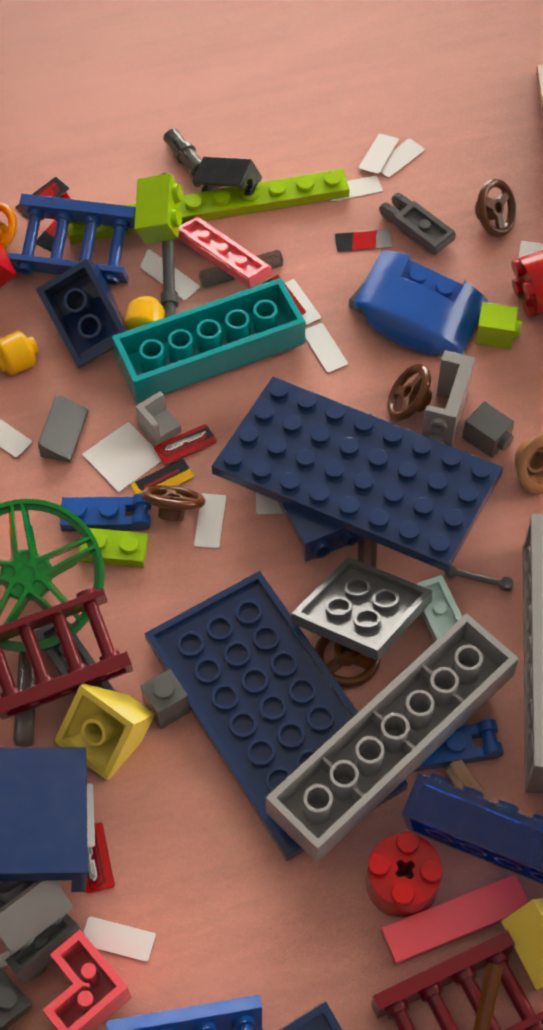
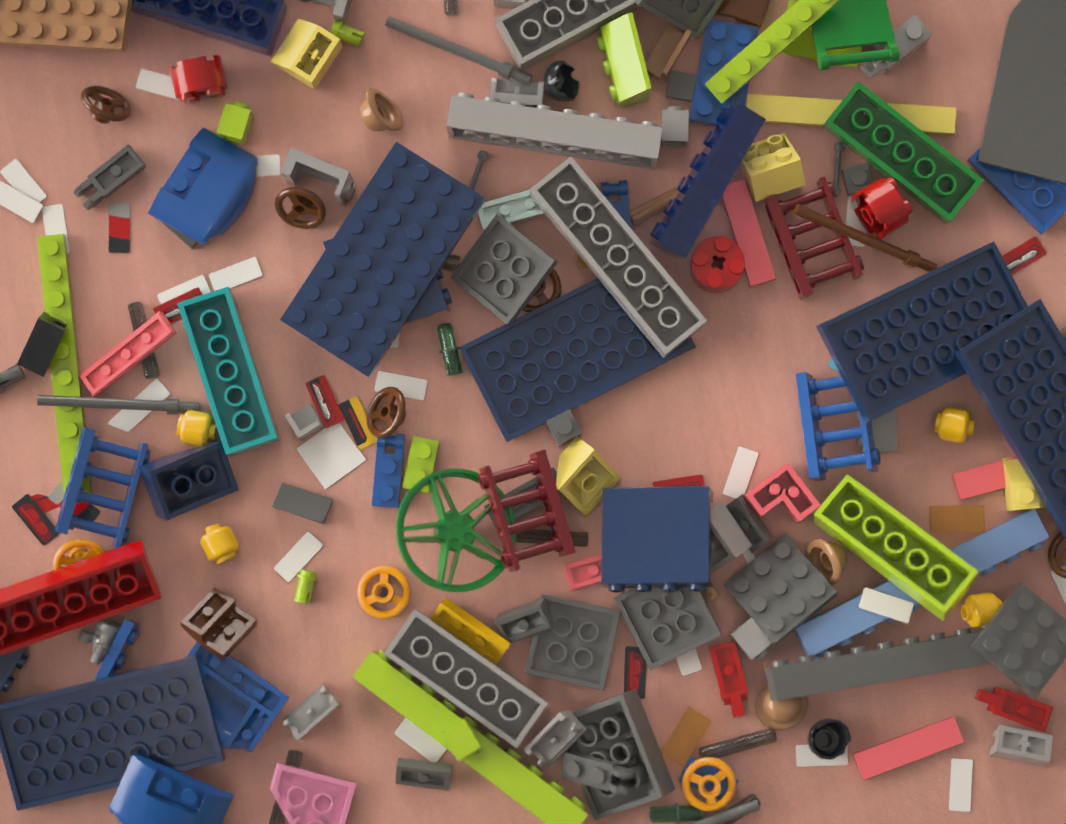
camera: 85 degrees left, 25 degrees up
(158, 208) = (84, 407): lime brick -> none
(257, 562) = (449, 349): none -> clear green axle
(488, 430) = (342, 146): dark grey brick -> none

